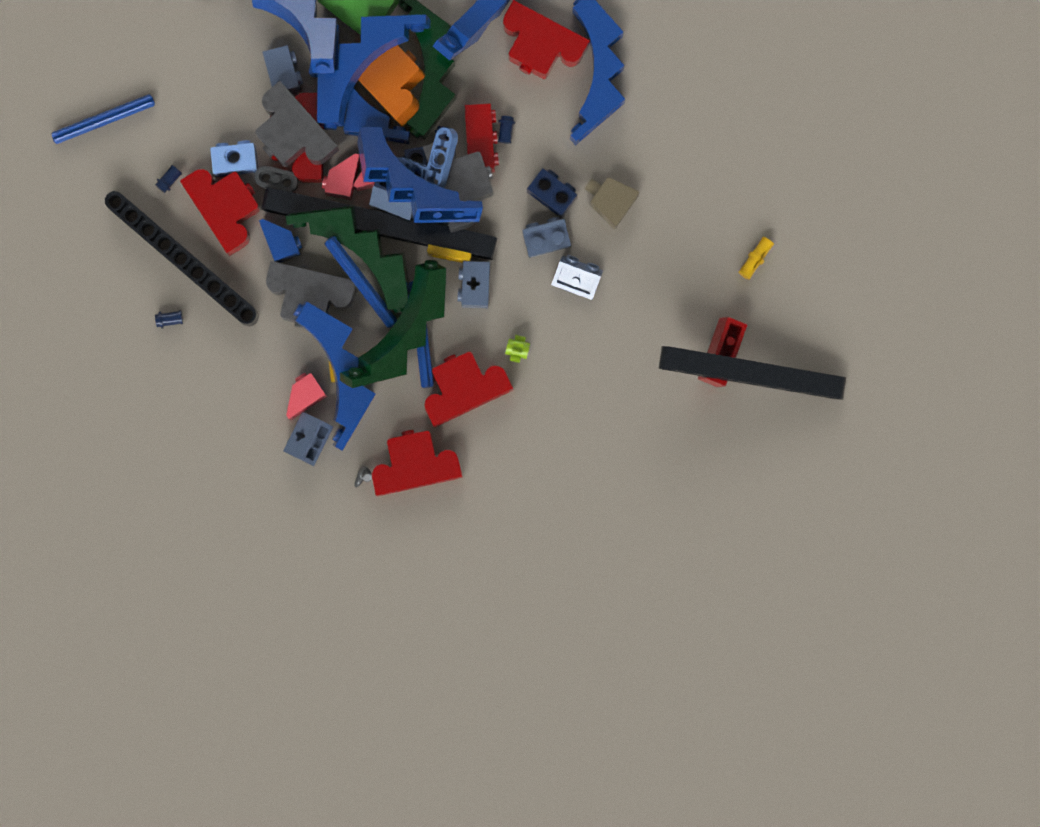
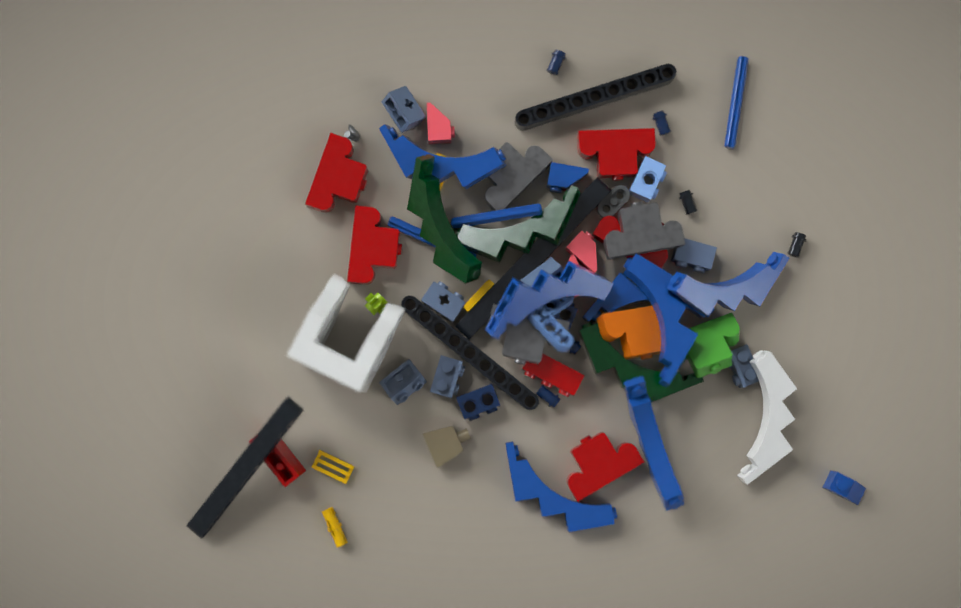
camera: 115 degrees right, 0 degrees up
(232, 107) = (688, 202): none -> black pin
(514, 219) = (464, 344): none -> black beam
(598, 320) = (310, 340): none -> white brick
(698, 276) = (335, 476): none -> yellow tile

